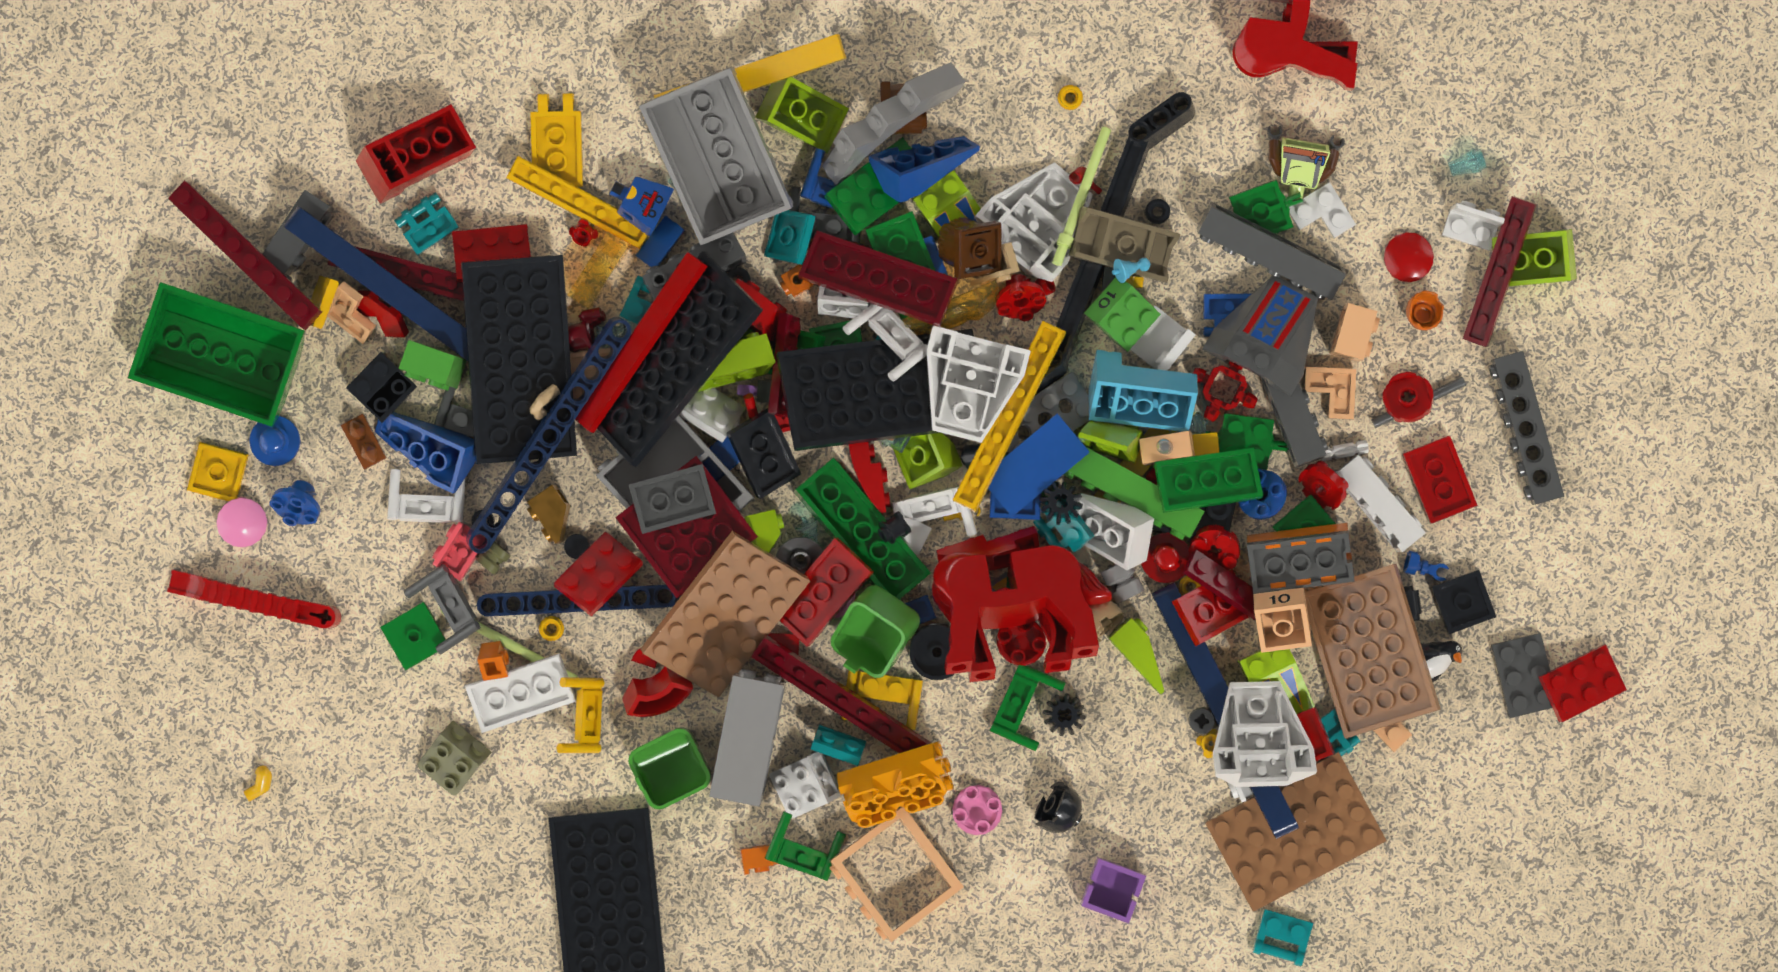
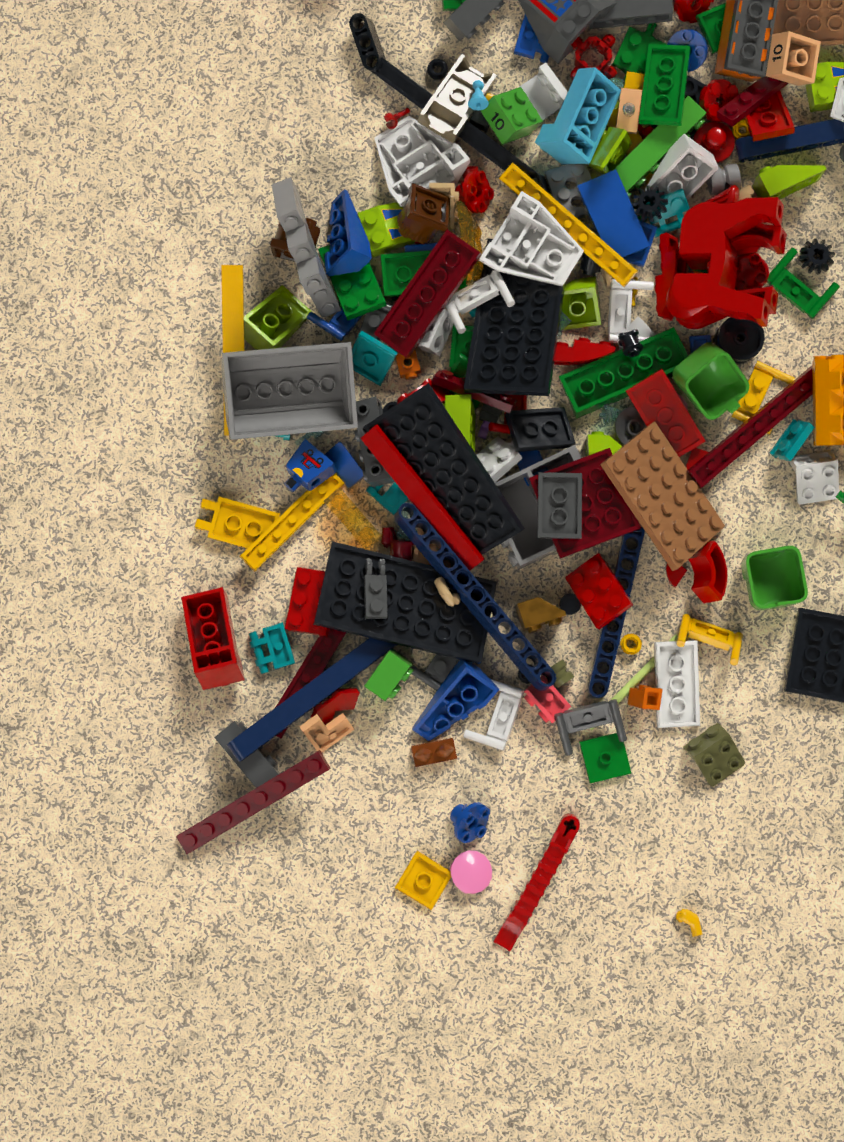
camera: 80 degrees left, 5 degrees down
(217, 354) = (328, 848): green container -> none
(275, 444) = (412, 825): blue plate -> none
(323, 297) = (304, 746): yellow tile -> none
(381, 387) = (395, 722): black slope -> none
(519, 321) = (375, 591): none -> dark grey hinge
(580, 238) = (323, 524): red plate -> none
(747, 738) = (770, 504): light grey container -> none
(1065, 239) = (439, 140): yellowish green bar -> none
(1070, 105) = (326, 104): yellow plate -> none

